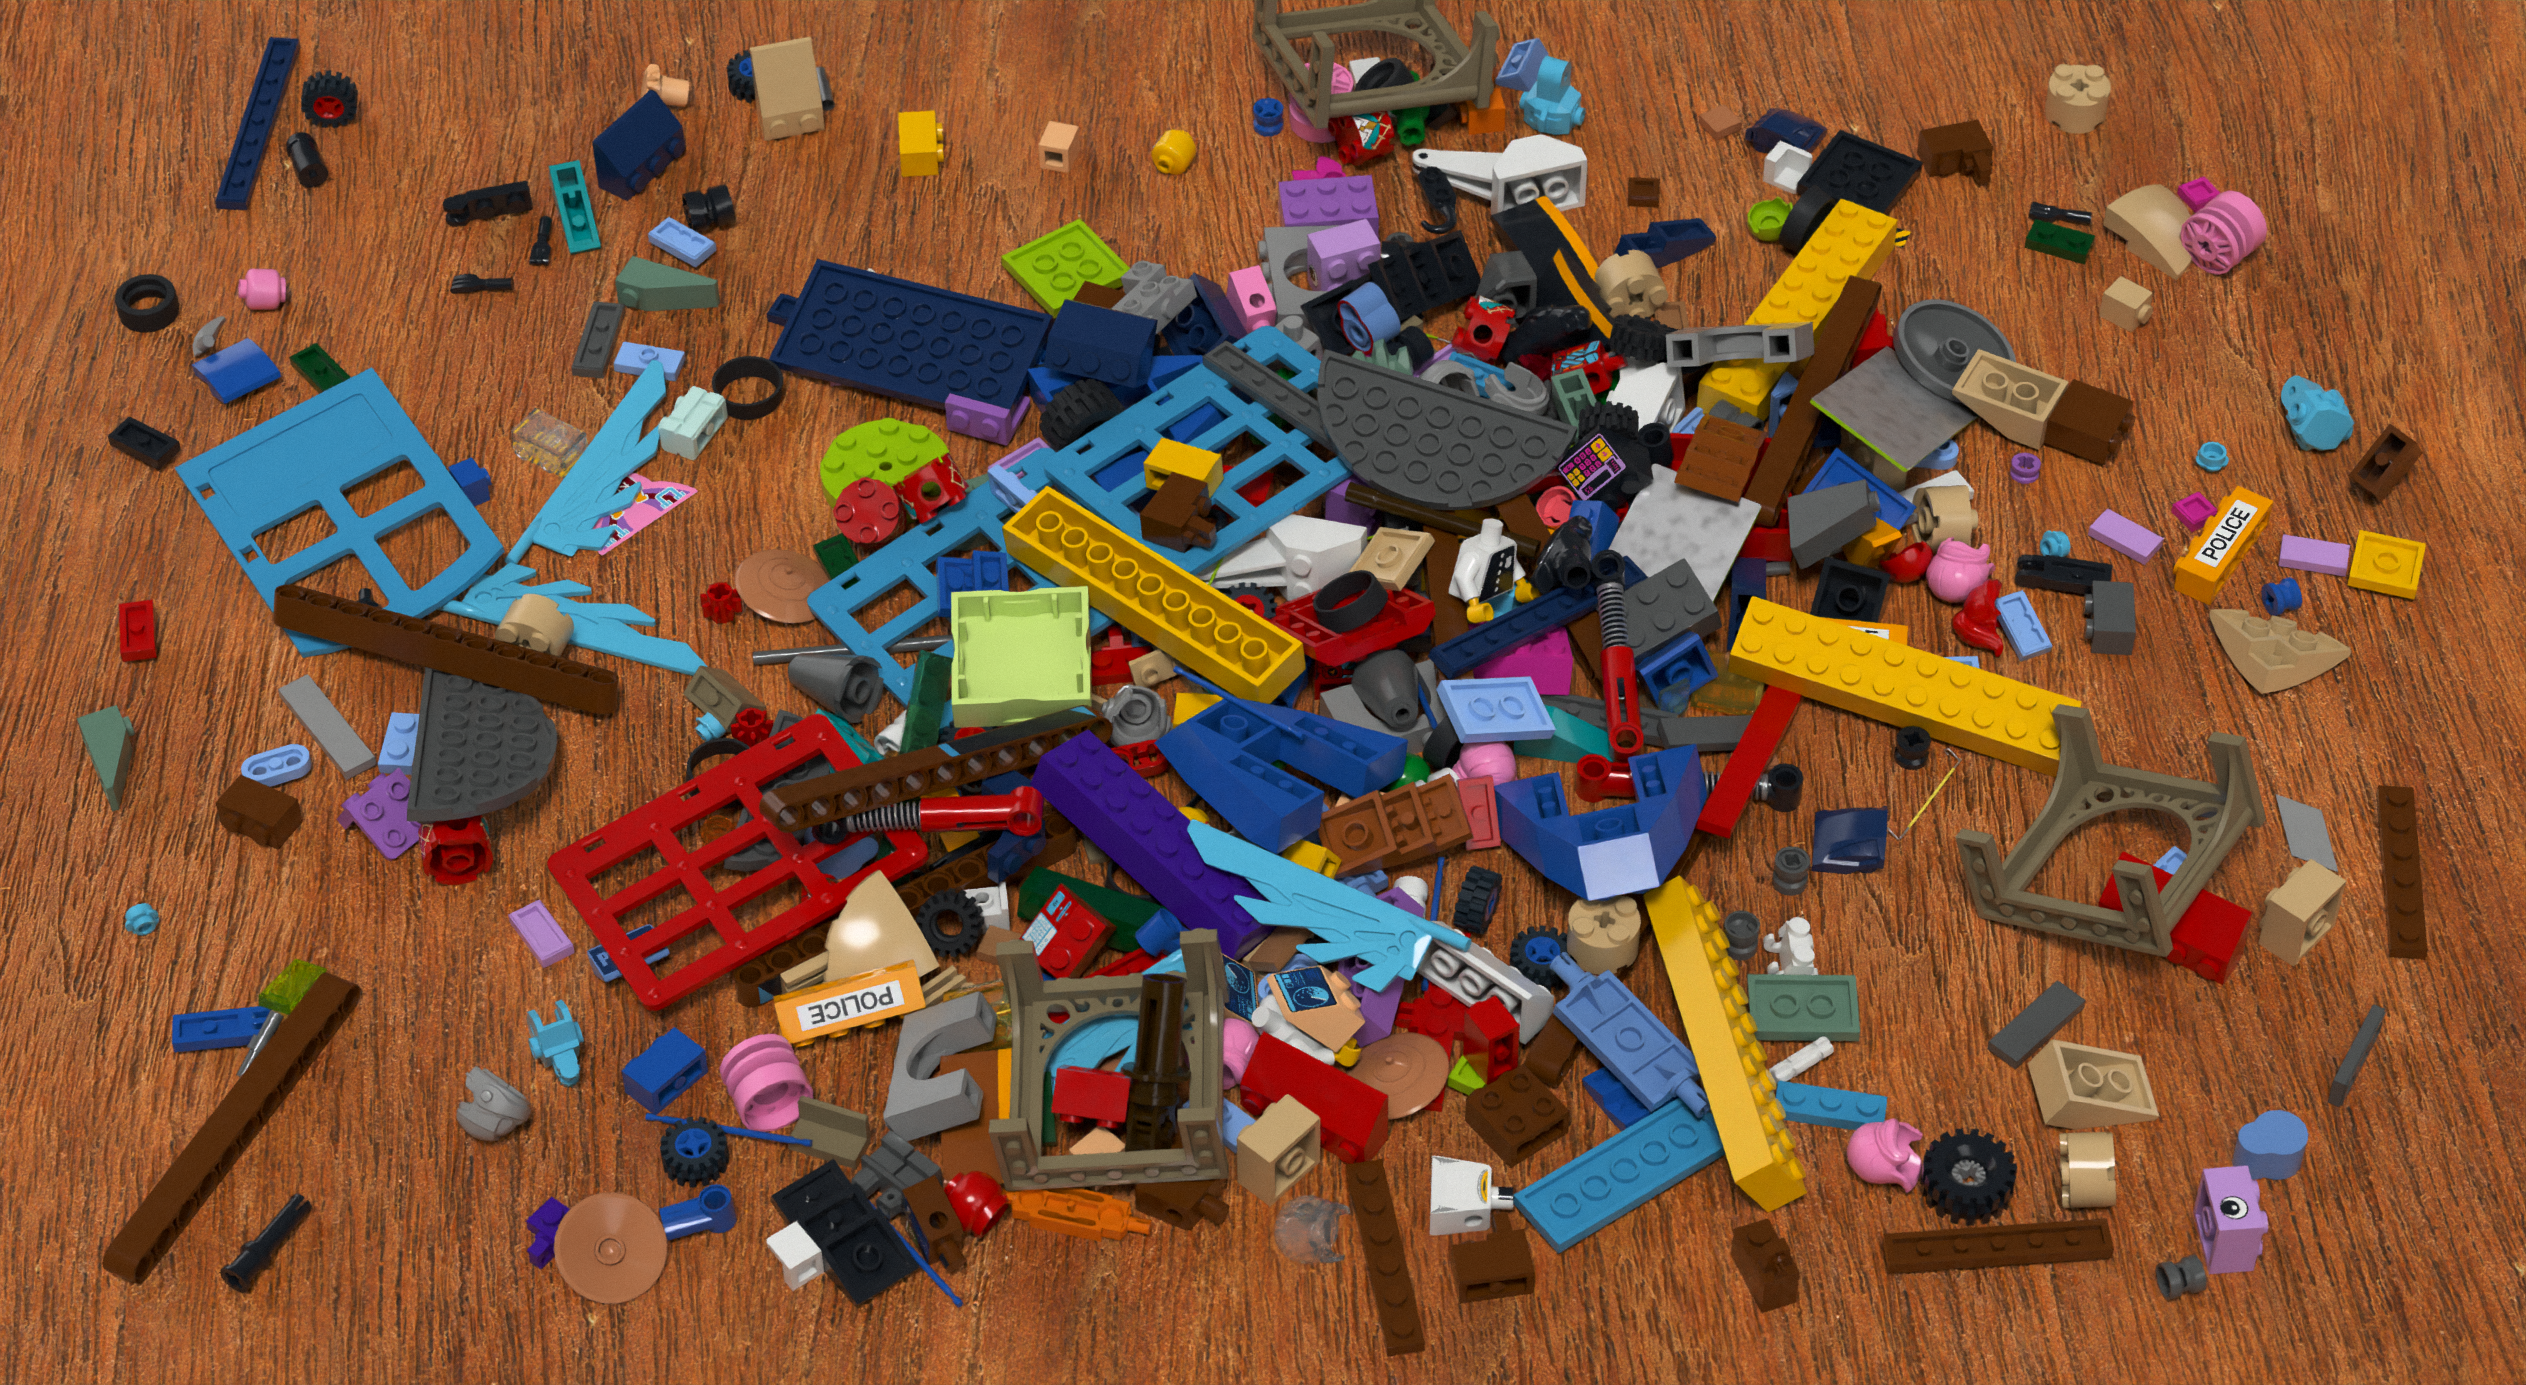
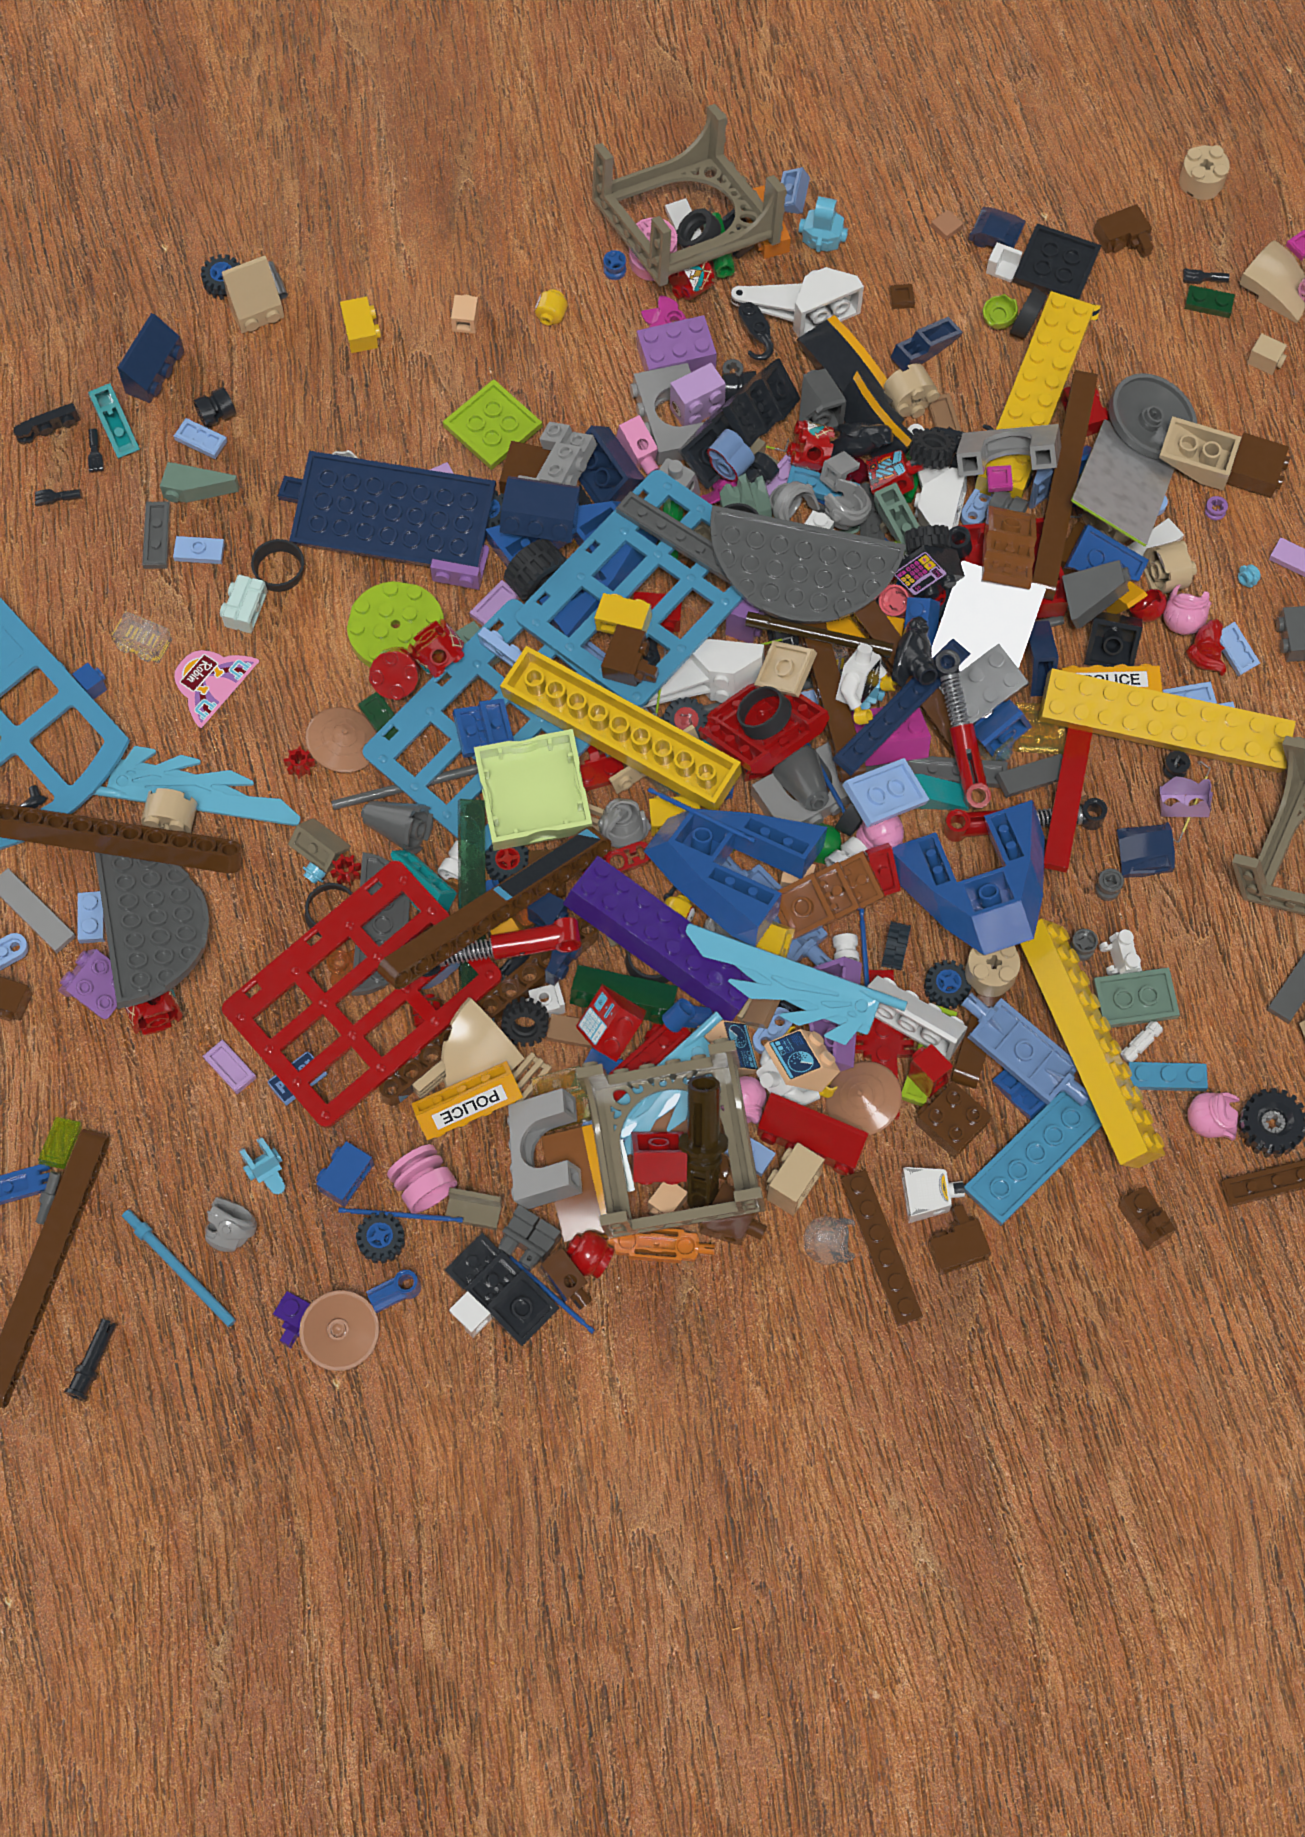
camera: 10 degrees left, 20 degrees up
(379, 1107) = (144, 1232): none -> dark azure bar
(590, 485) = (181, 663): medium azure animal -> none
(670, 90) = (156, 301): light nougat gear -> none
(1511, 351) = (836, 468): none -> light grey panel
(1726, 385) = (999, 478): none -> dark pink tile
(1905, 772) = (1177, 789): none -> lavender piece
(2060, 573) = (1258, 599): black hinge -> none

